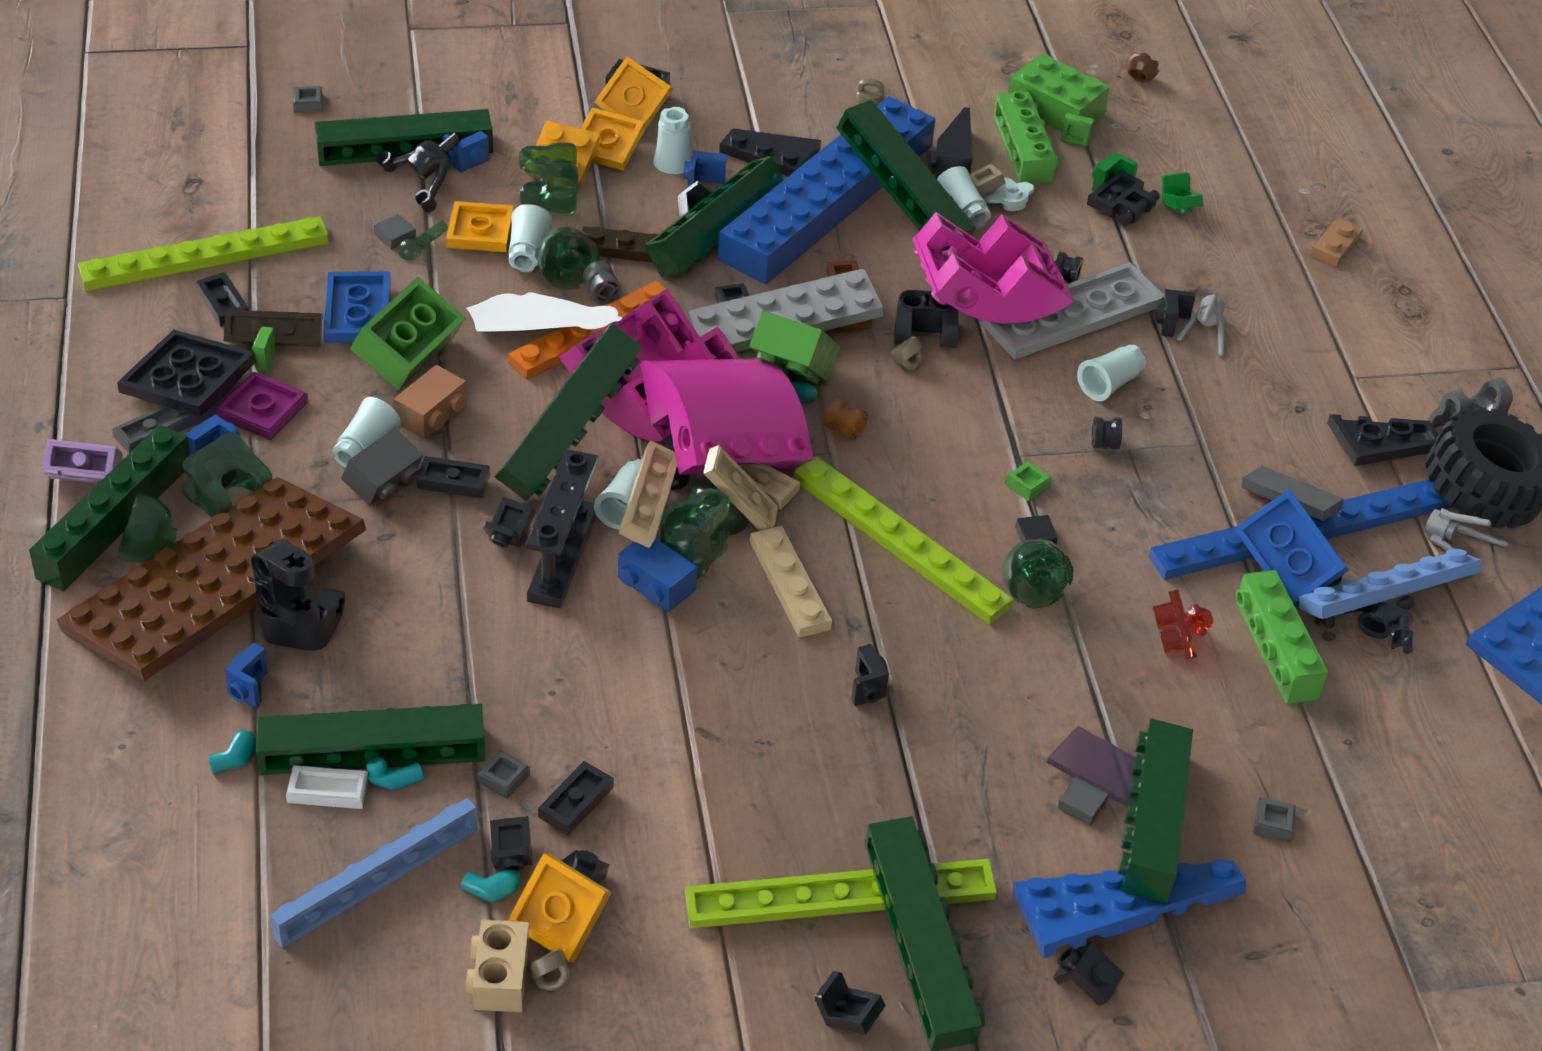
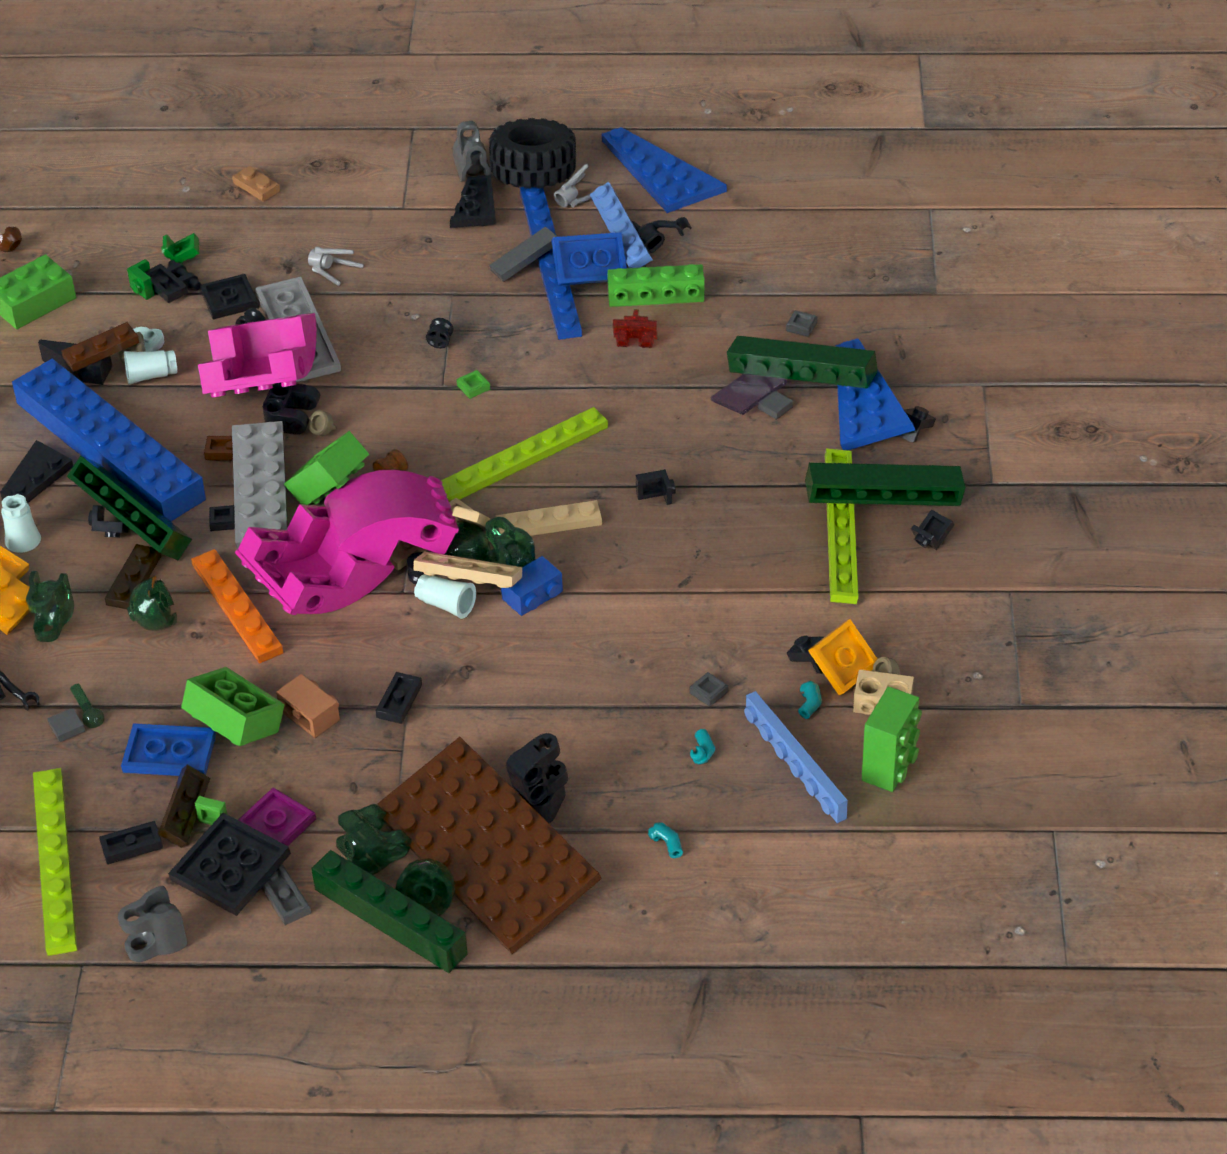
camera: 75 degrees left, 0 degrees up
(79, 460) = (335, 928): lavender brick -> none
(91, 316) = (158, 926): none -> dark grey piece
(208, 432) = (316, 842): blue bracket -> none
(245, 673) = (593, 828): blue bracket -> none
(327, 787) = (706, 787): white tile -> none
(355, 737) = (671, 755): dark green brick -> none
(369, 424) = (339, 745): light aqua plant -> none
(375, 956) = (891, 739): none -> bright green brick
(382, 467) = (386, 734): dark grey brick -> none
(479, 226) = (83, 664): light orange plate -> none
(509, 523) = (461, 665): black bracket -> none
(511, 843) = (781, 684): black bracket -> none
(529, 228) = (115, 631): light aqua plant -> none
(536, 312) = (220, 632): white sticker -> none
(562, 529) = (485, 639): black fence -> none
(568, 413) = (366, 606): dark green brick -> none
(575, 797) = (741, 648): black plate -> none
(602, 282) = (191, 587): dark grey wheel -> none
(706, 167) = (53, 513): blue bracket -> none
(899, 167) = (128, 383): dark green brick -> none
(965, 148) = (100, 346): none -> reddish brown plate
(1025, 137) = (74, 319): bright green brick -> none
(1036, 527) = (527, 387): black tile -> none
(1037, 573) = (574, 387): clear green cylinder -> none
(1077, 129) = (78, 289): bright green tile -> none
(1109, 372) = (377, 319): light aqua plant -> none
(1116, 247) = (228, 296): none -> black tile
(1174, 305) = (316, 277): black bracket -> none

